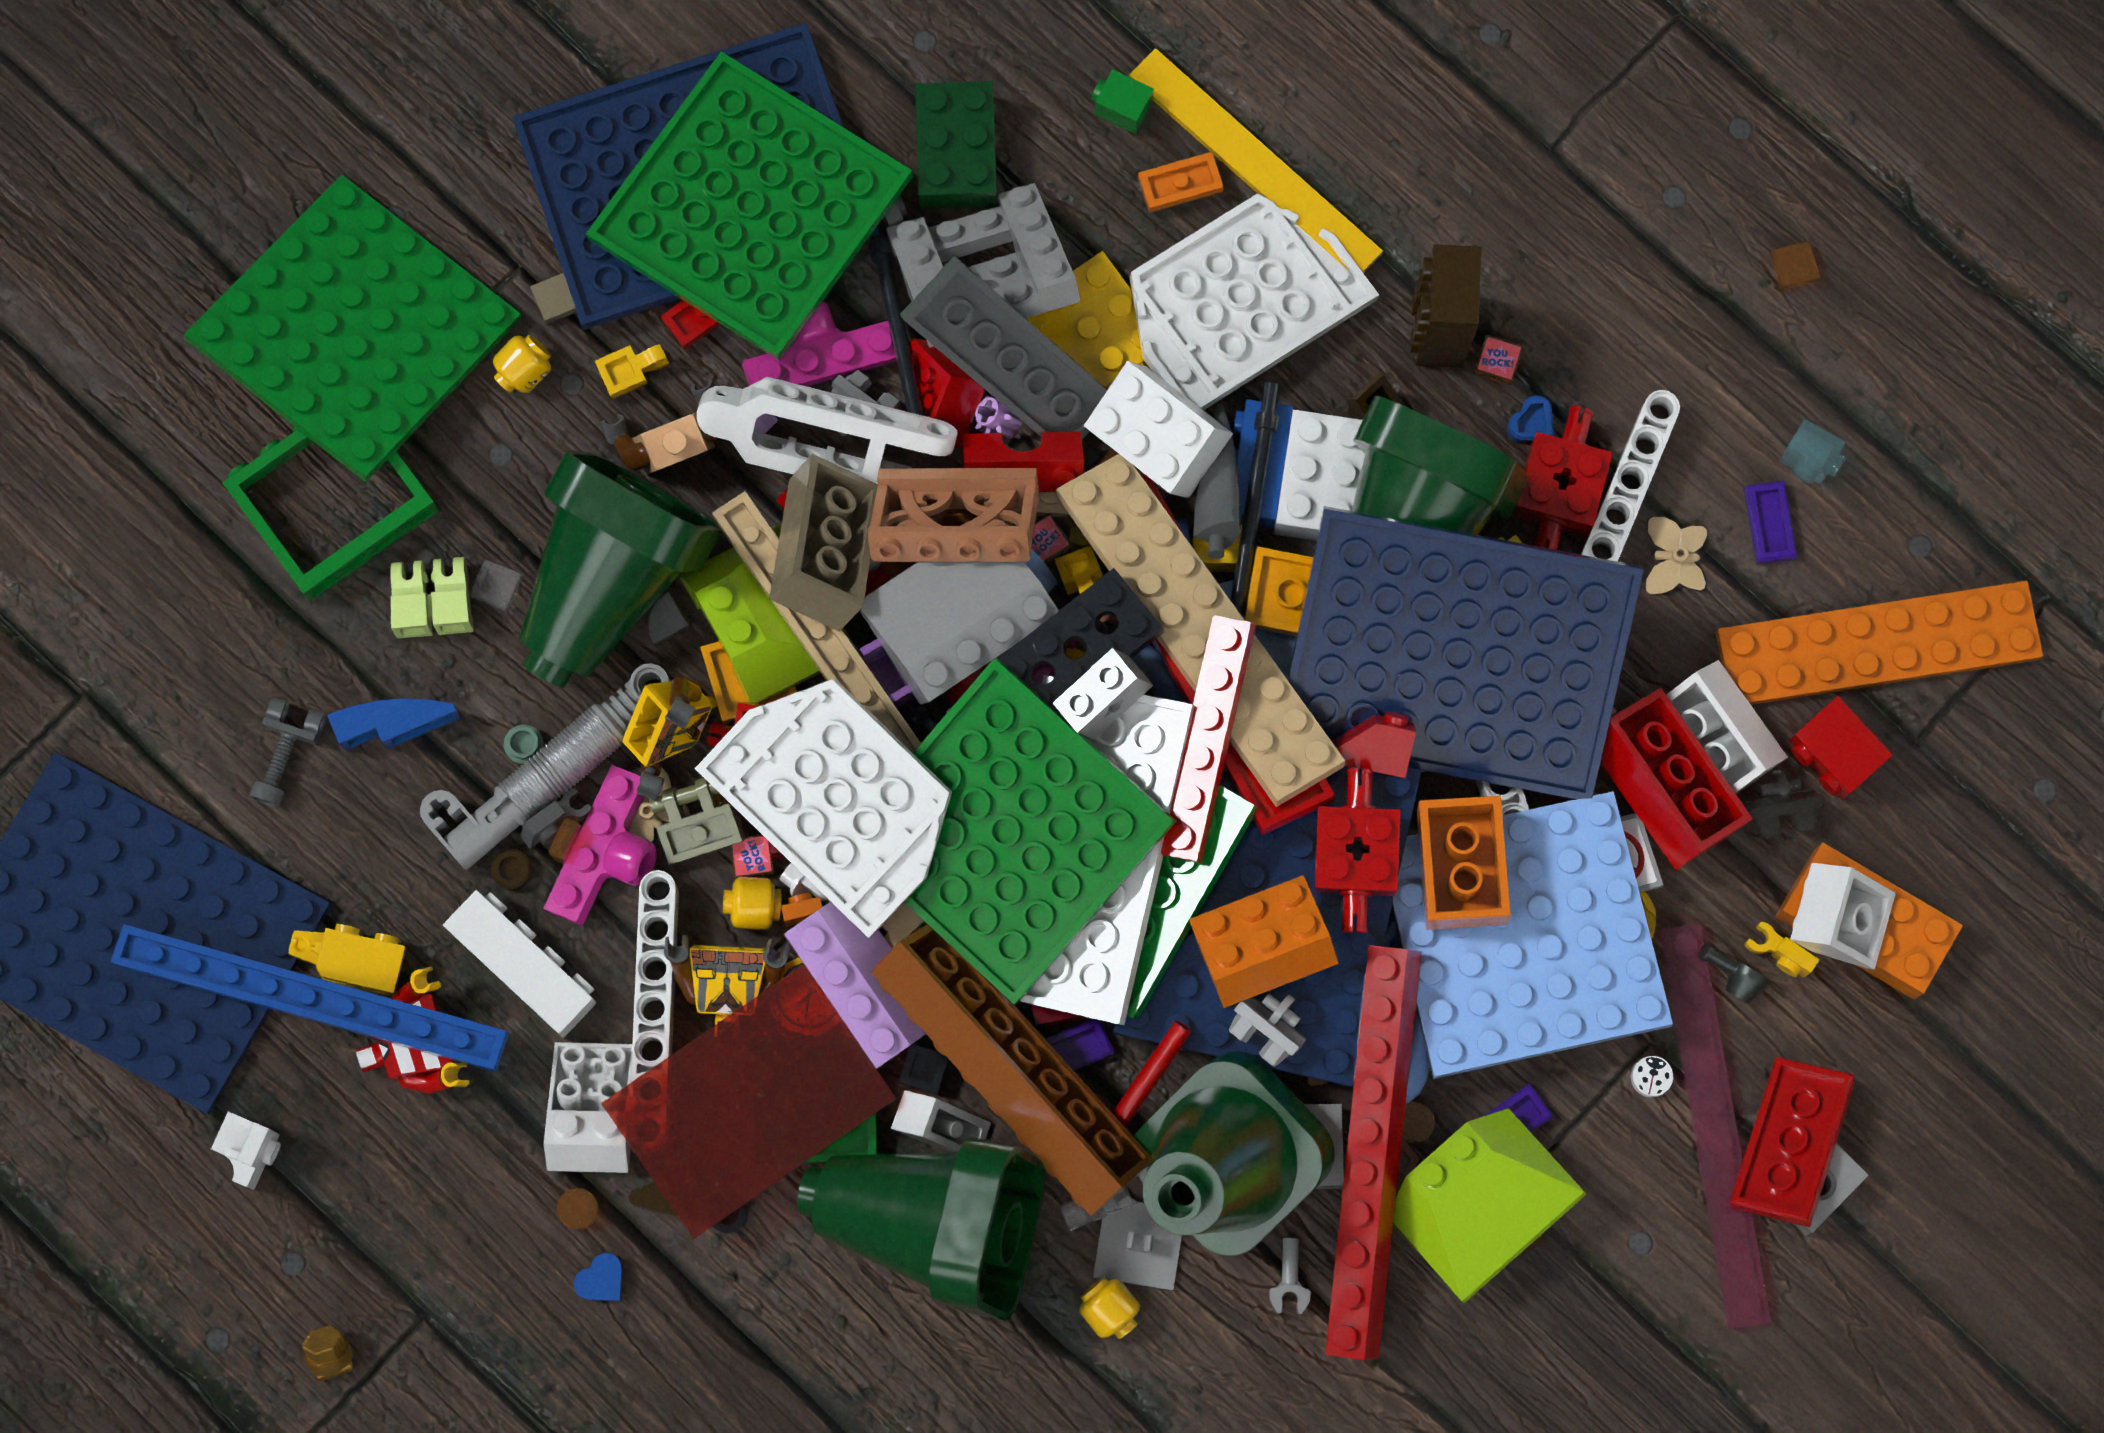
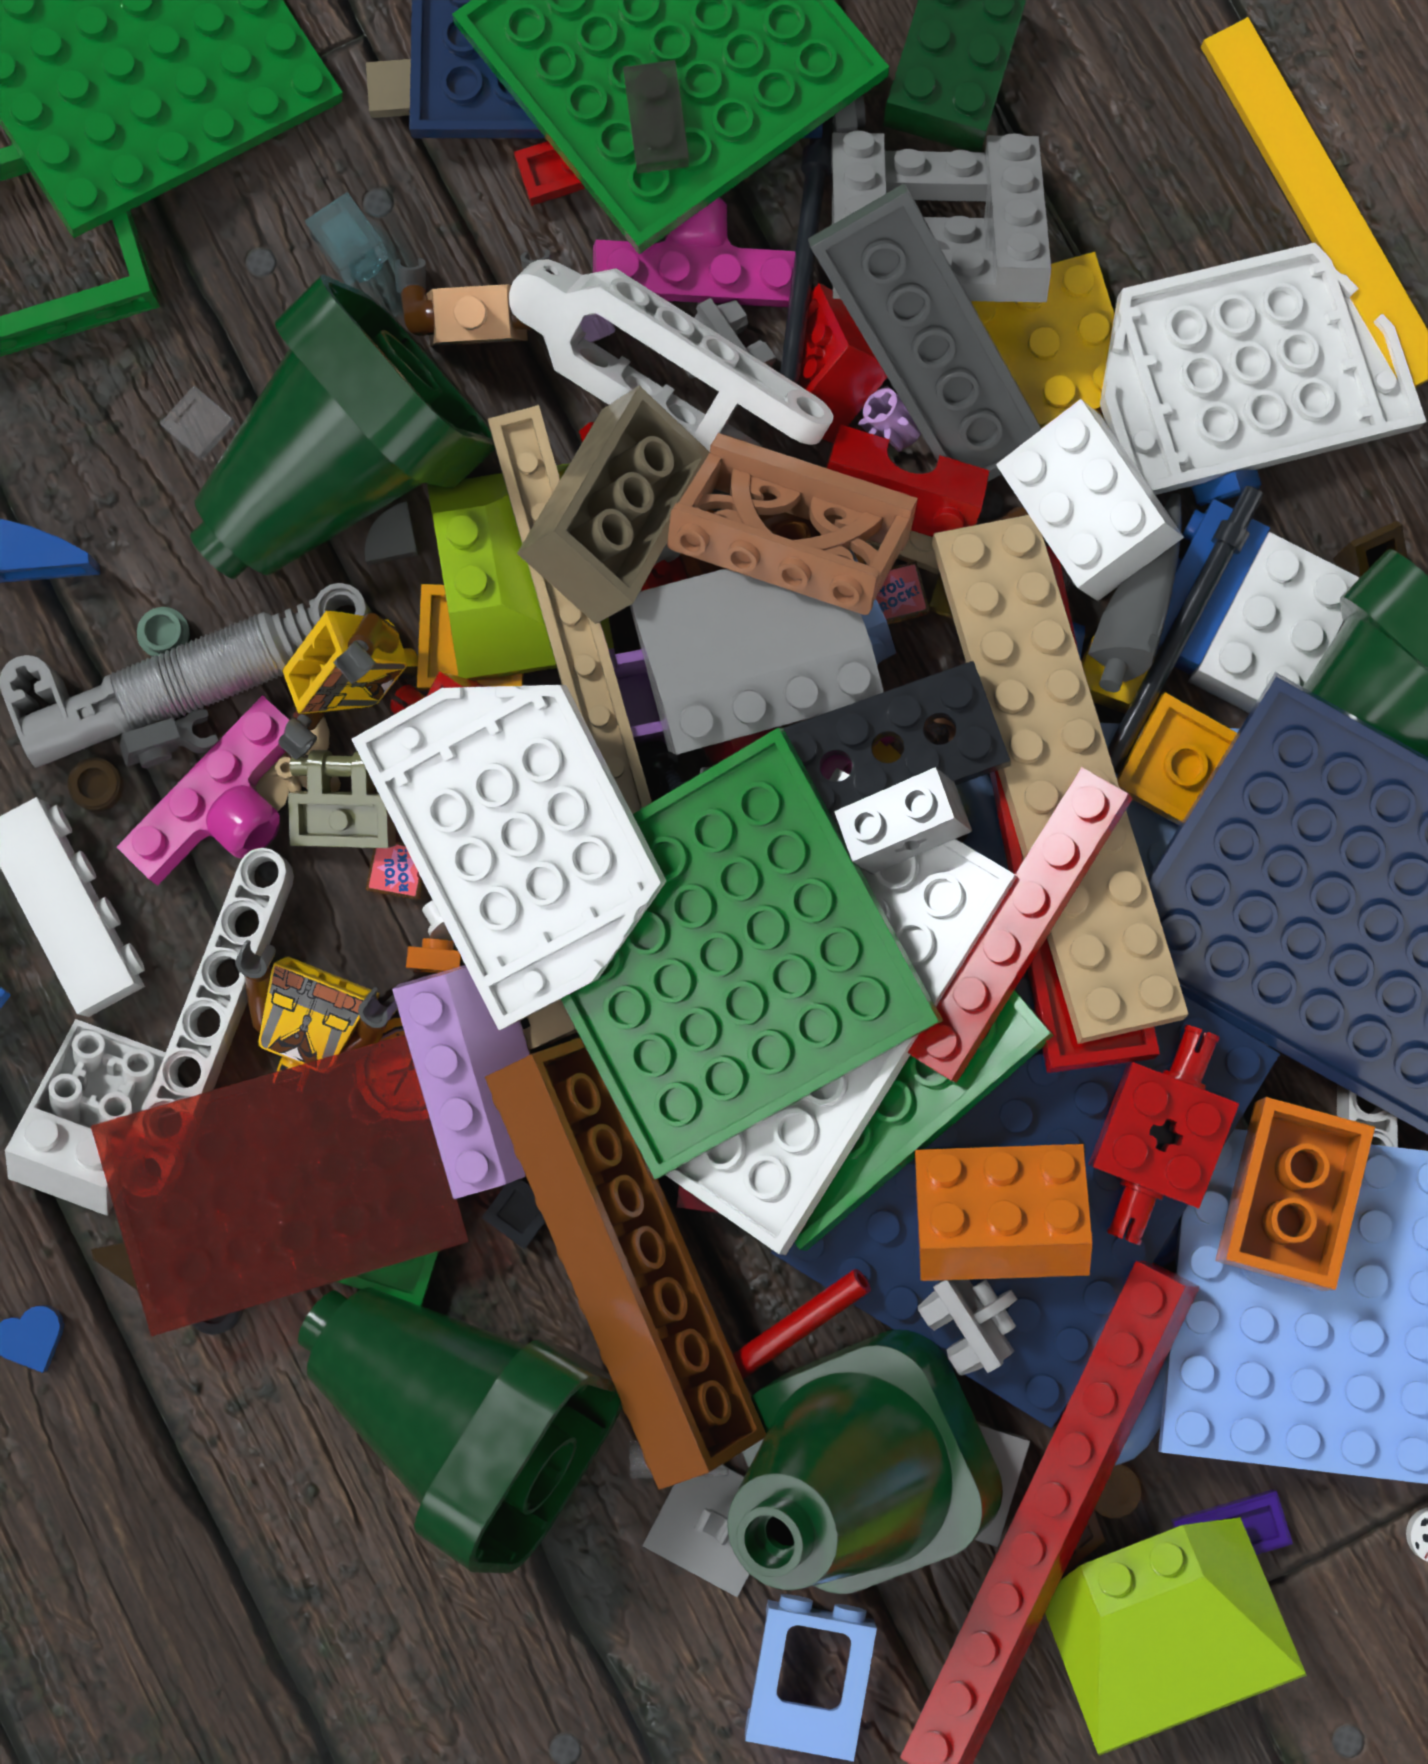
camera: 20 degrees right, 5 degrees up
(447, 606) = (121, 432): yellowish green legs -> none
(522, 364) = (321, 155): yellow head -> none
(563, 419) = (347, 240): none -> clear light blue brick
(564, 840) = (169, 771): clear orange tile -> none
(577, 1209) = (31, 1238): clear orange tile -> none
(625, 371) = (446, 205): yellow plate -> none
(752, 903) = (376, 929): yellow head -> none
(758, 260) = (656, 116): none -> clear smoke plate
(937, 1122) = (515, 1290): white slope -> none
(1078, 570) = (928, 646): yellow plate -> none
(1082, 1044) = (722, 1249): dark purple tile -> none
(1109, 1308) = (648, 1596): yellow head -> none
(1122, 101) = (1184, 70): green brick -> none
(1180, 182) = (1222, 196): orange plate -> none
(1251, 1358) = (801, 1725): none -> light blue window
(1253, 387) = (1225, 486): none -> blue tile
(1289, 1281) = (890, 1630): light grey bar -> none
(1379, 744) = (1238, 1003): red slope -> none

